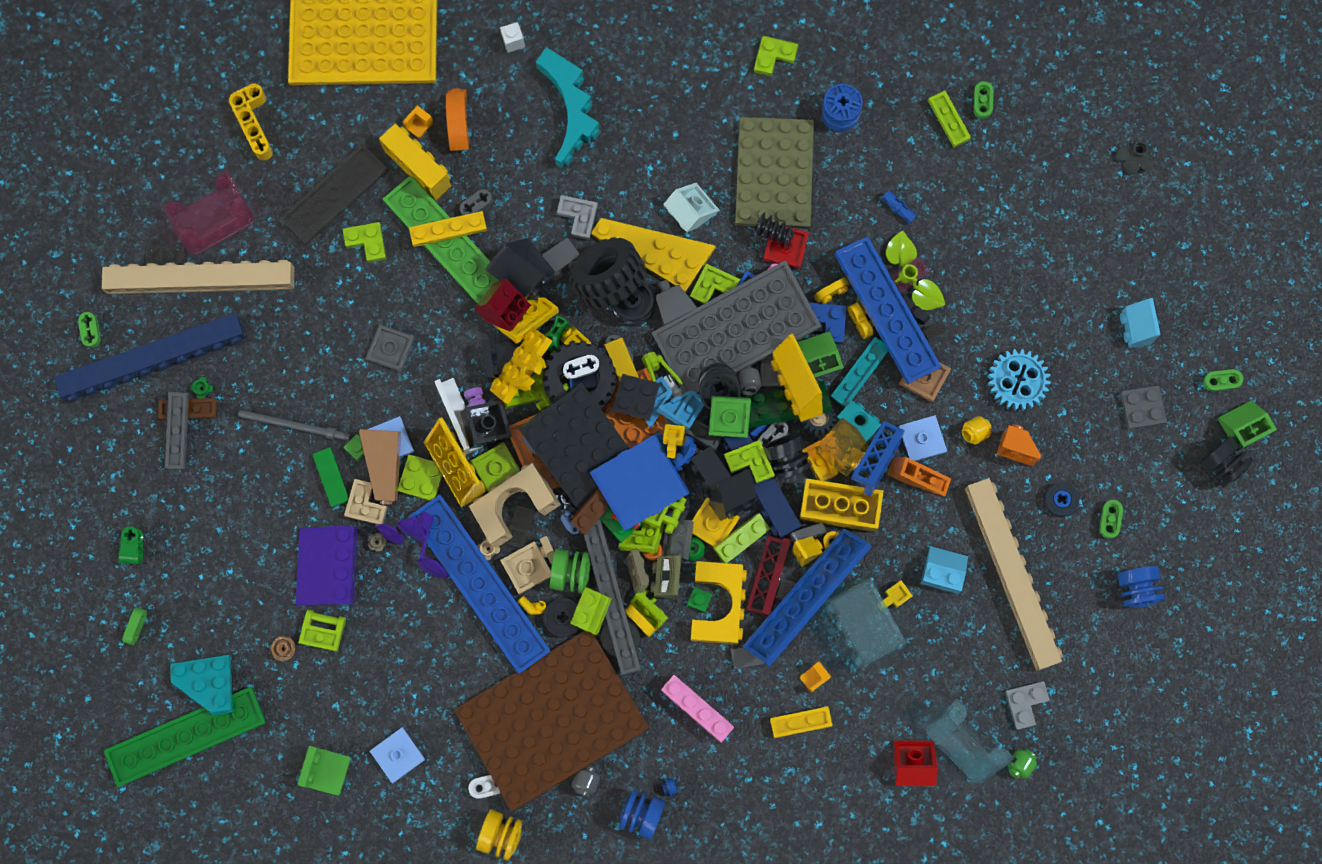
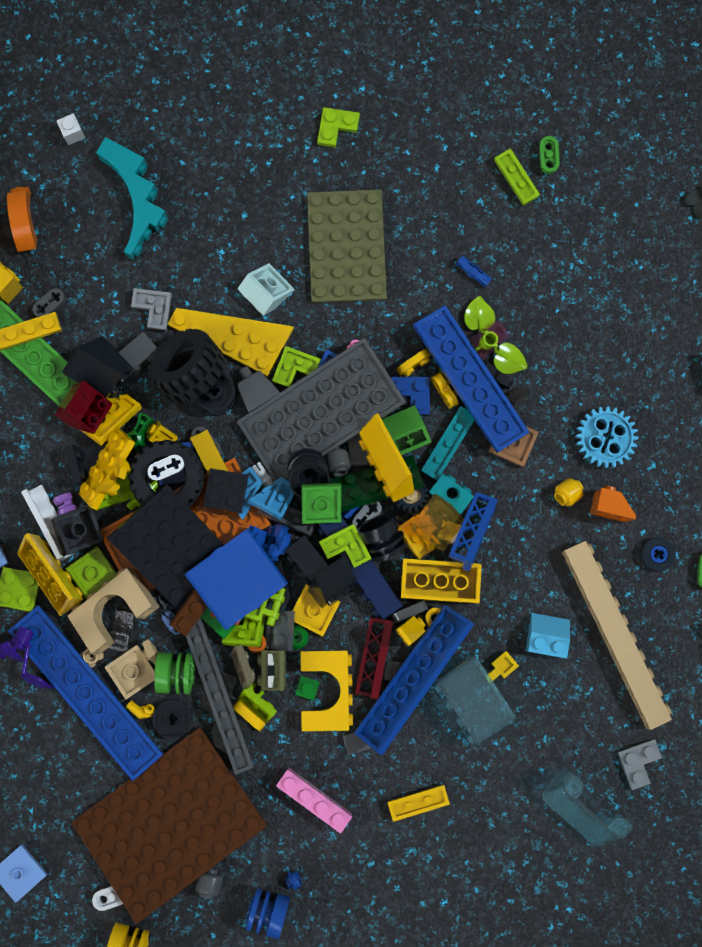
camera: 10 degrees left, 5 degrees up
(591, 610) = (199, 712): lime plate -> none
(652, 363) = (240, 452): lime plant -> none
(673, 436) = (266, 528): yellow plate -> none
(741, 538) = (344, 622): lime plate -> none
(775, 230) = (351, 306): black piece -> none
(793, 254) = (364, 320): red plate -> none
(815, 677) = (428, 756): light orange panel -> none
(840, 117) = (404, 184): blue wheel -> none
(915, 763) = (534, 833): red slope -> none
(918, 475) = (515, 543): orange slope -> none
(923, 438) = (516, 505): light blue plate -> none
(1022, 764) = (642, 823): bright green head -> none

